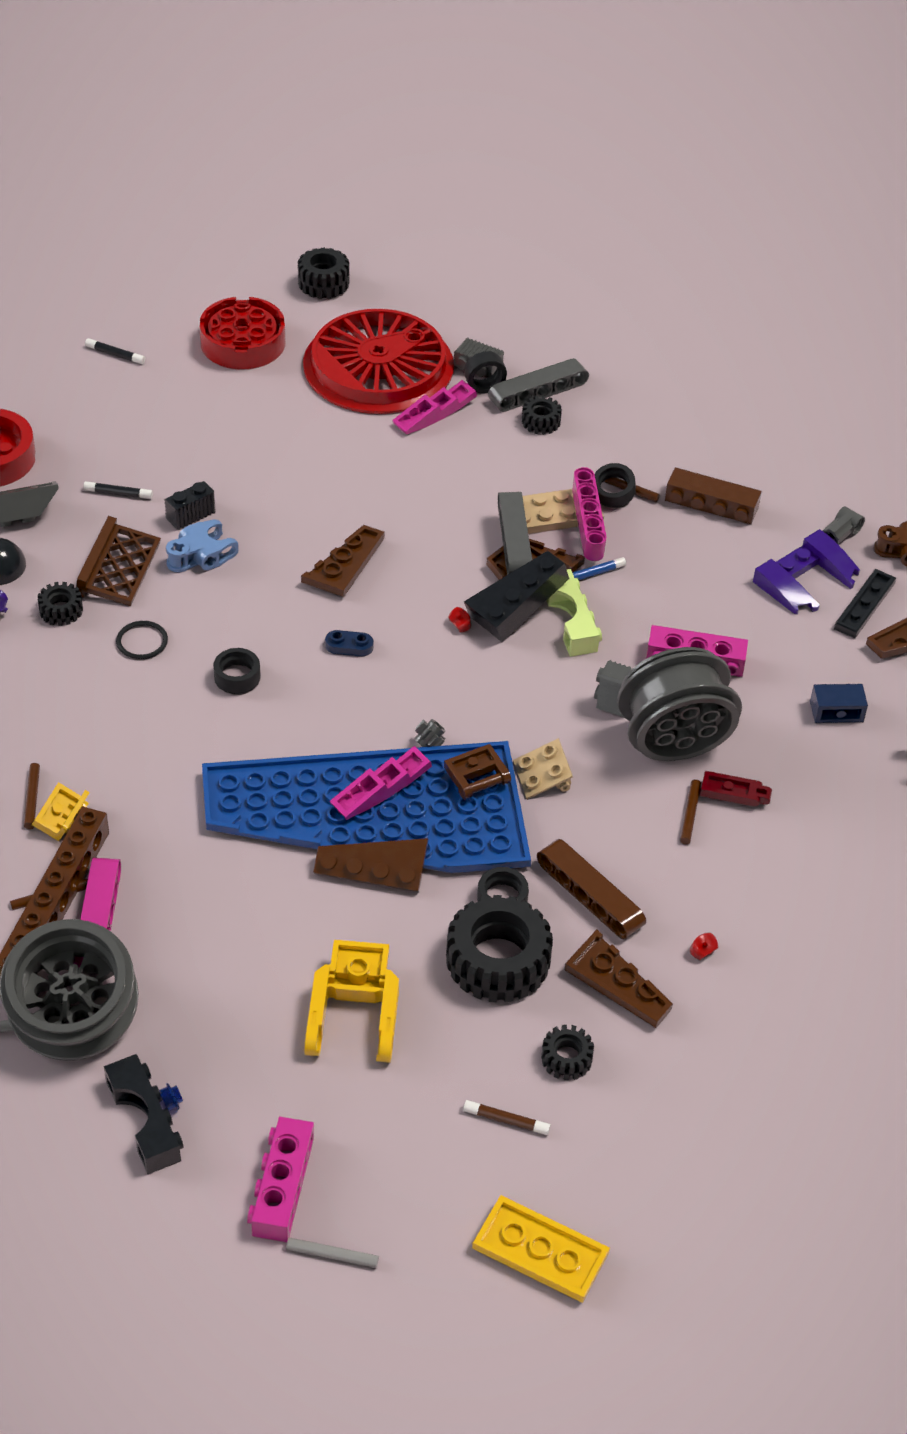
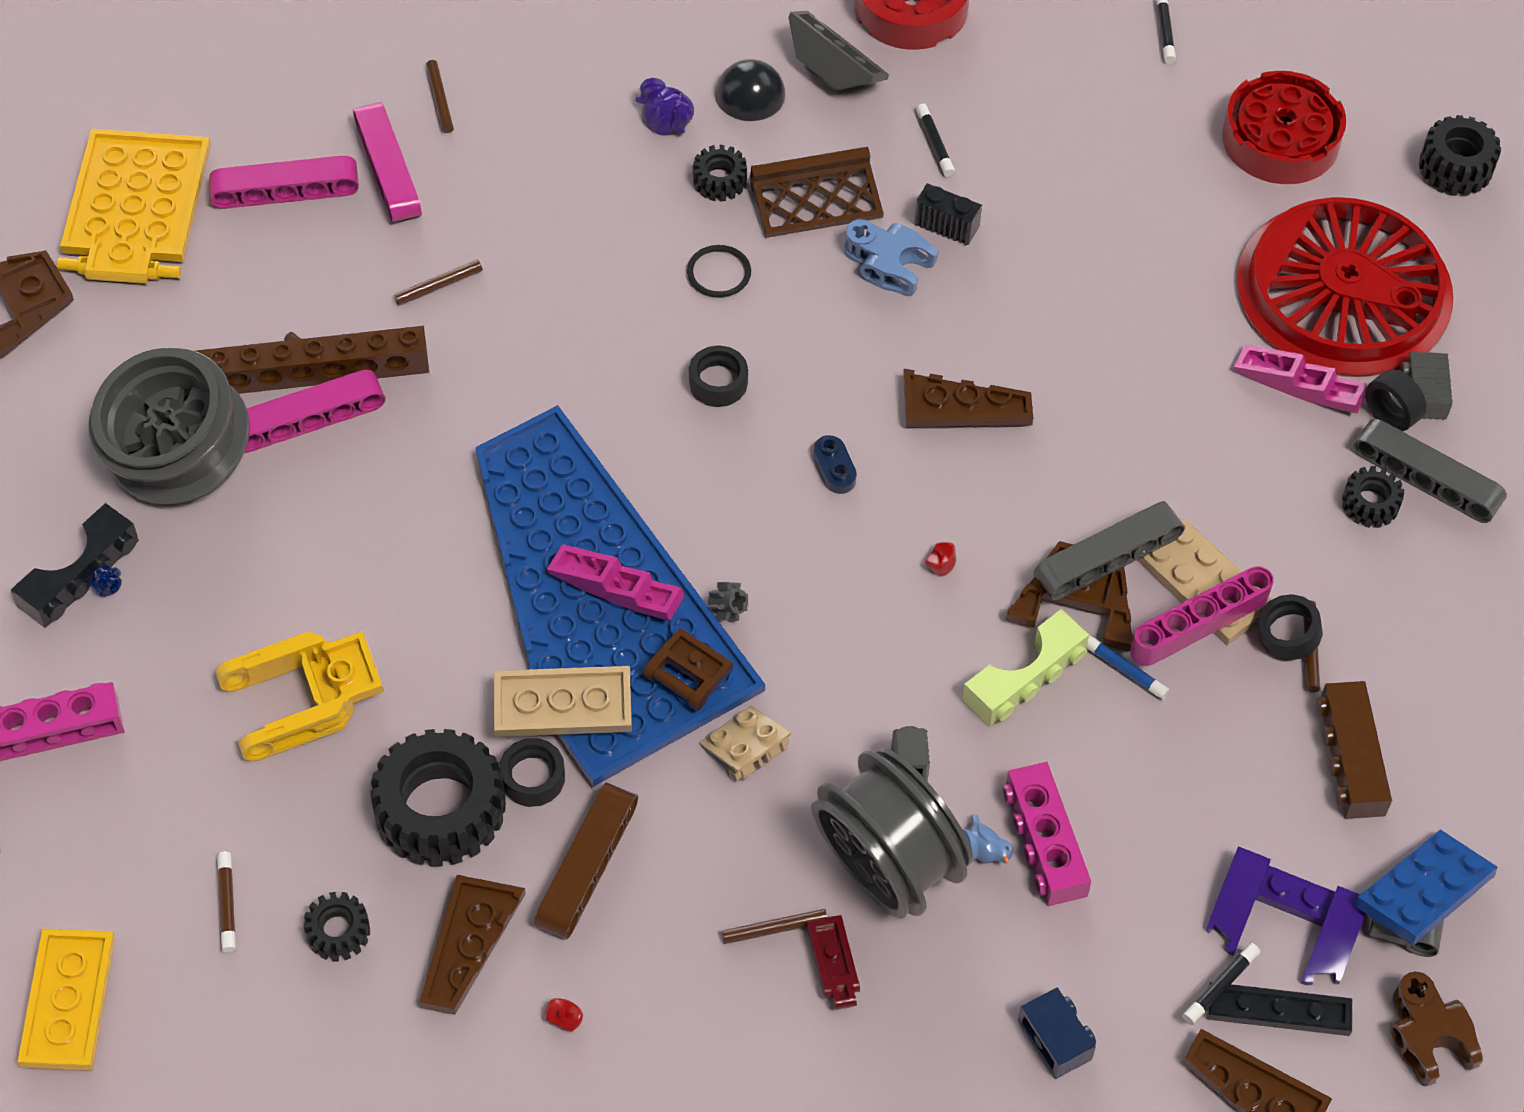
camera: 65 degrees right, 10 degrees up
(59, 811) = (432, 310): yellow bracket -> none
(380, 863) = (504, 624): reddish brown wing -> none
(462, 848) = (562, 701): none -> tan plate
(517, 596) = (999, 595): black wedge -> none
(824, 503) = (1426, 887): none -> blue plate
(842, 616) = (1223, 981): none -> black bar

